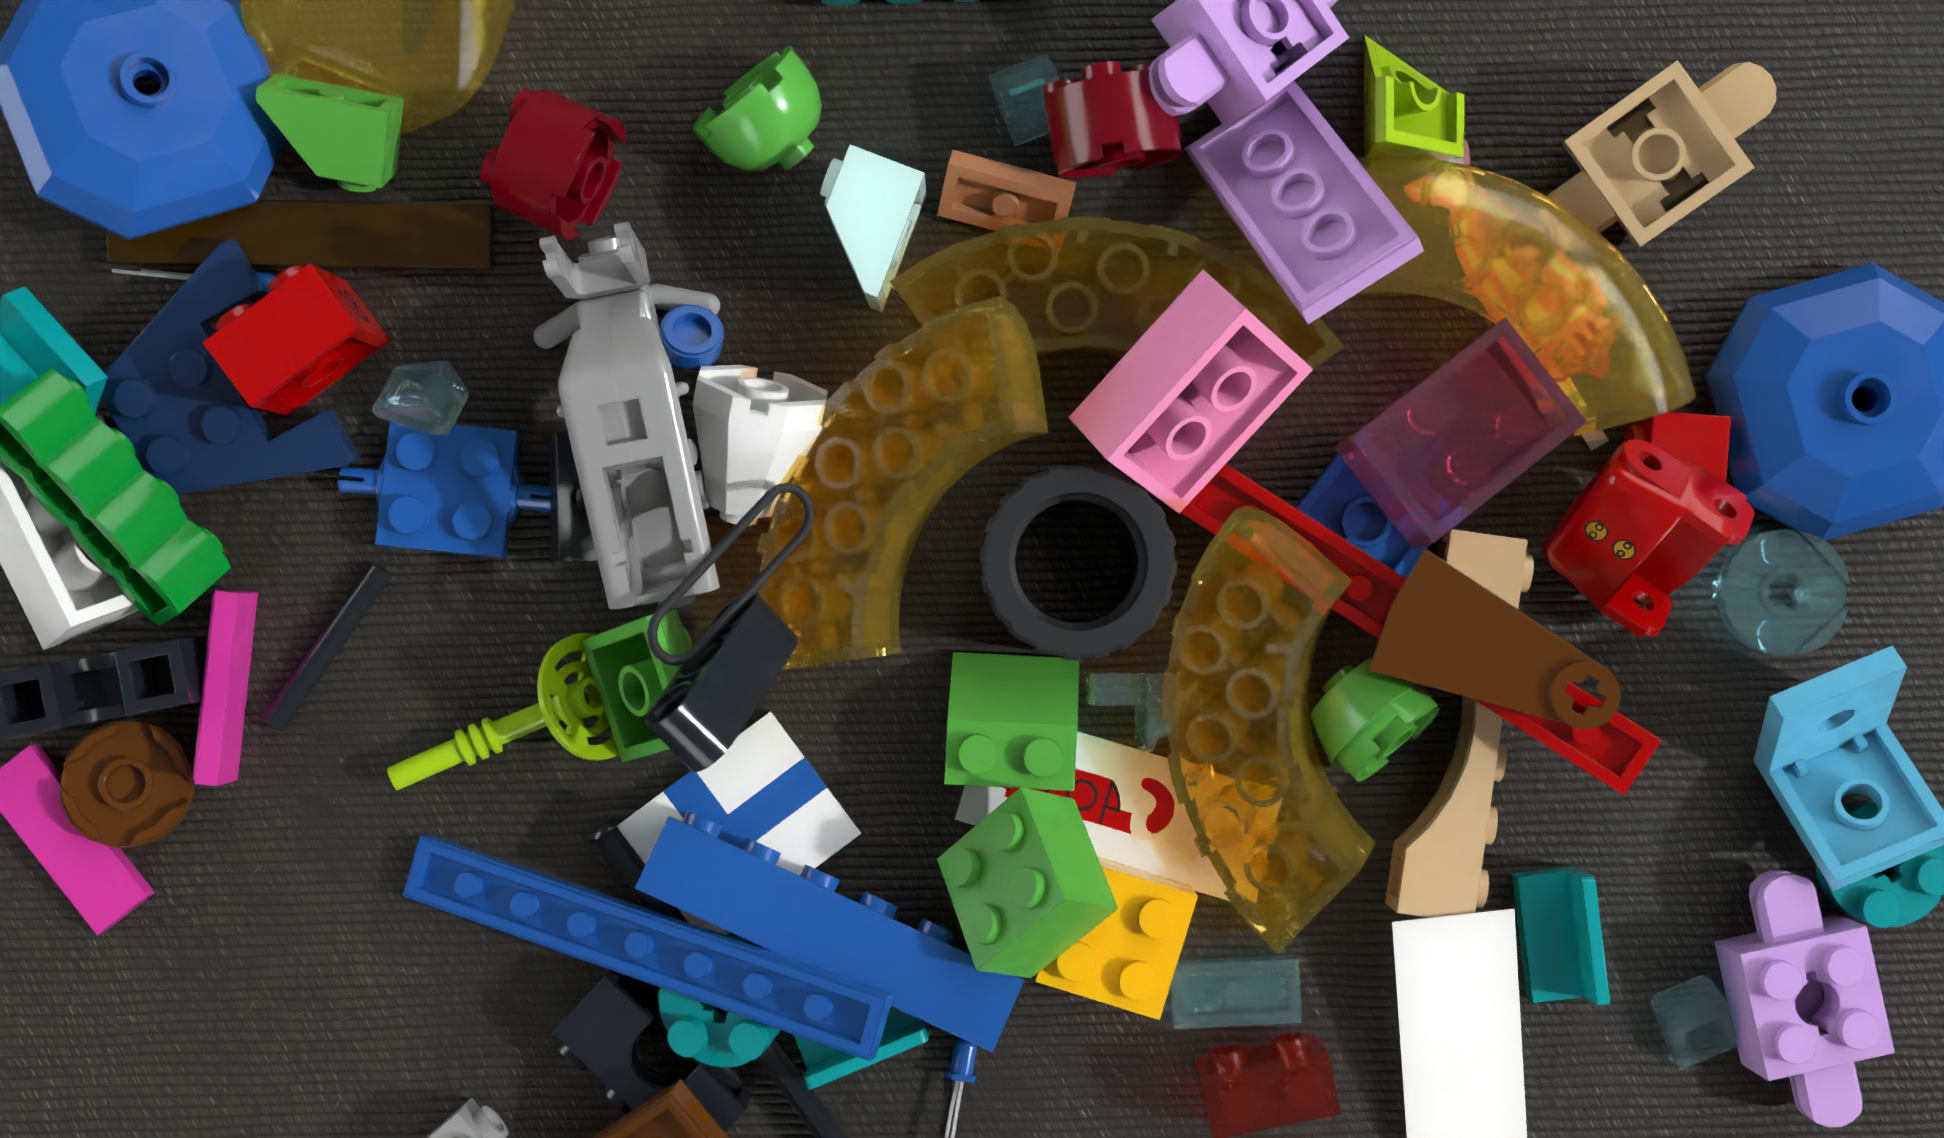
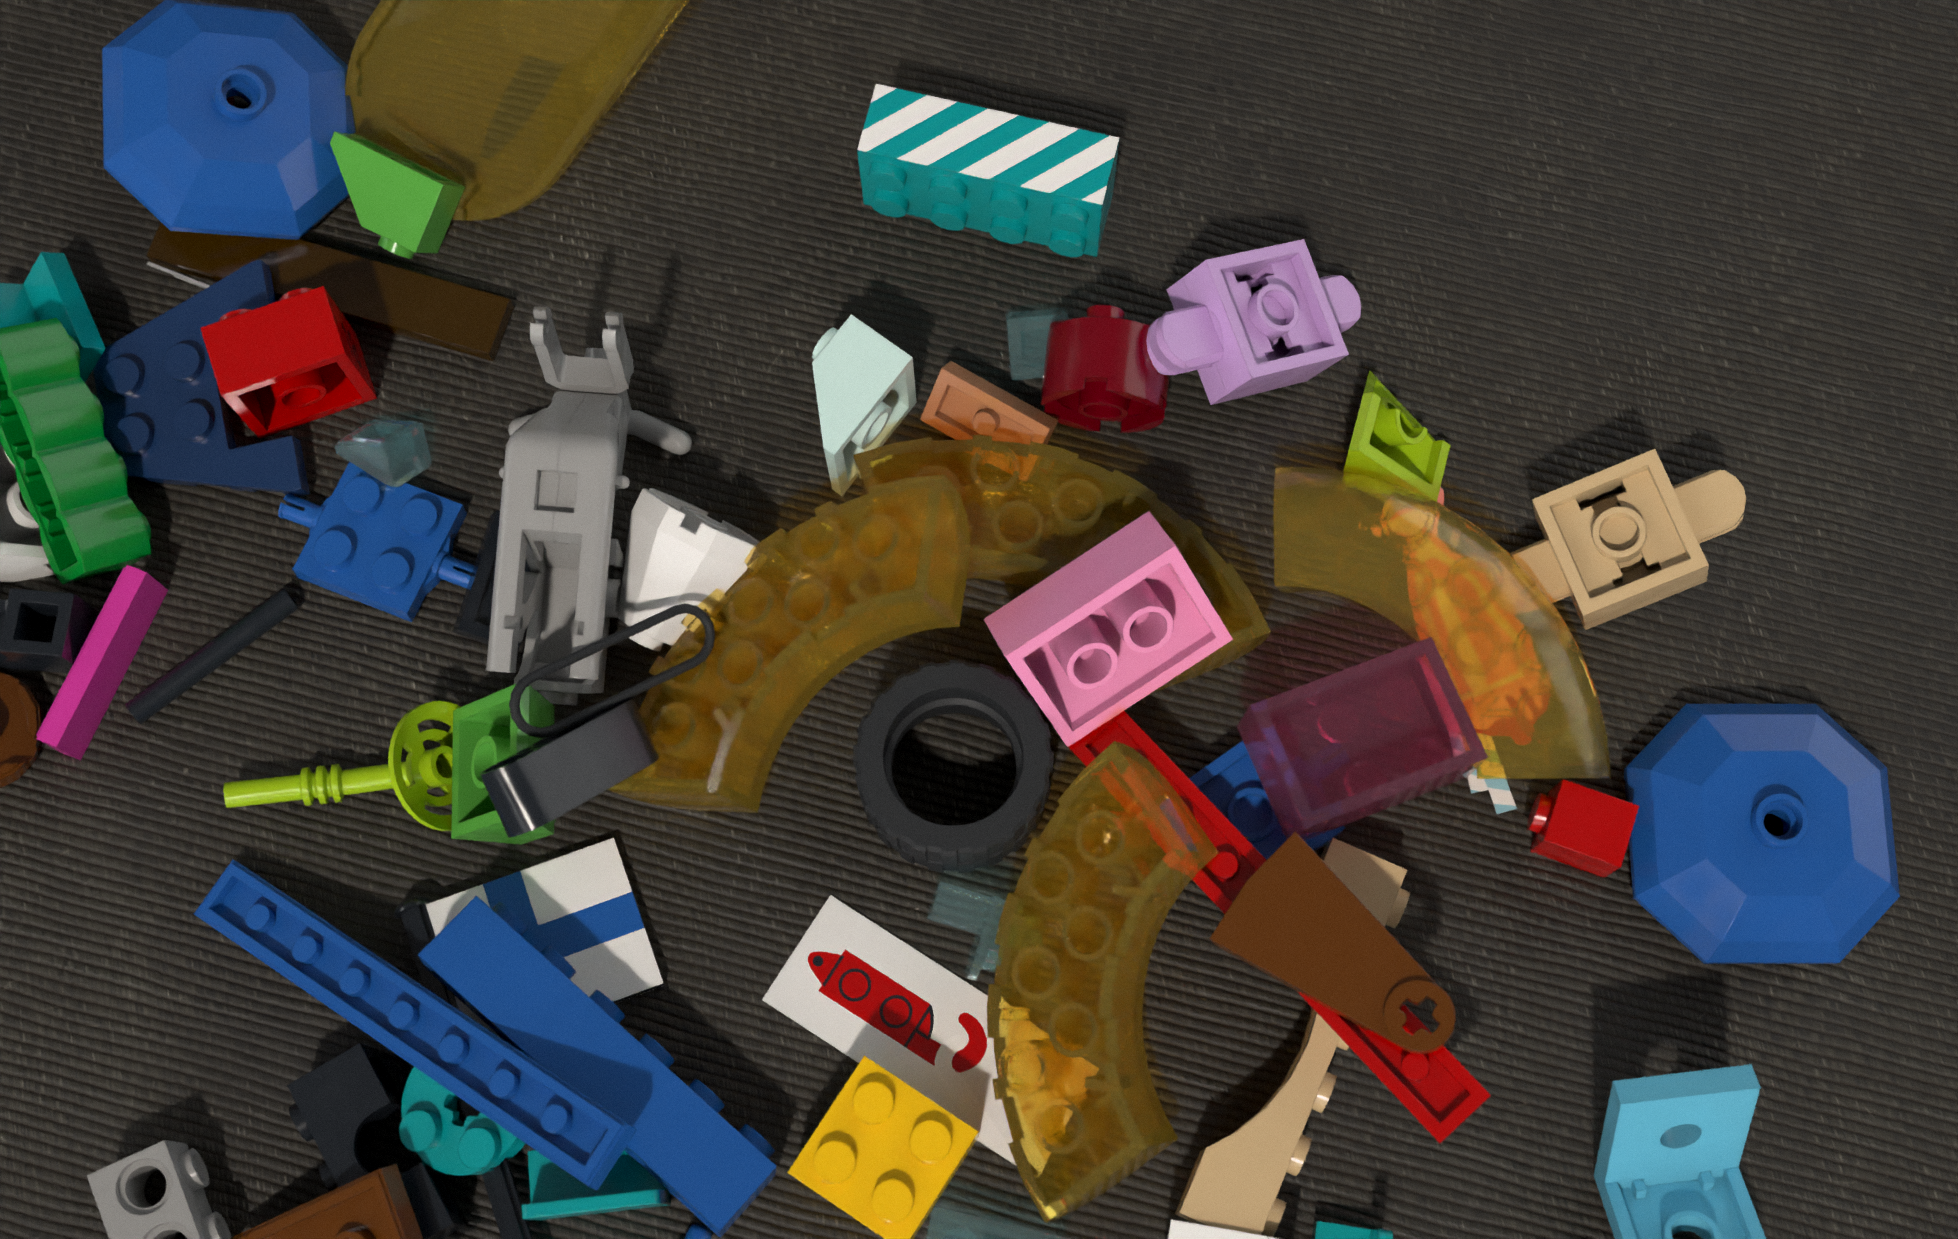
camera: 25 degrees right, 15 degrees down
(554, 162) = (580, 269): dark red brick -> none
(691, 336) = (653, 461): blue tile -> none
(765, 116) = (786, 286): bright green cylinder -> none
(1012, 721) = (845, 912): bright green slope -> none
(1026, 883) = (807, 1065): bright green brick -> none
(1304, 202) = (1265, 485): lavender tile -> none
(1369, 718) = (1205, 1002): bright green cone -> none
(1645, 532) = (1526, 895): red piece -> none
(1818, 592) = (1645, 1040): clear light blue plate -> none

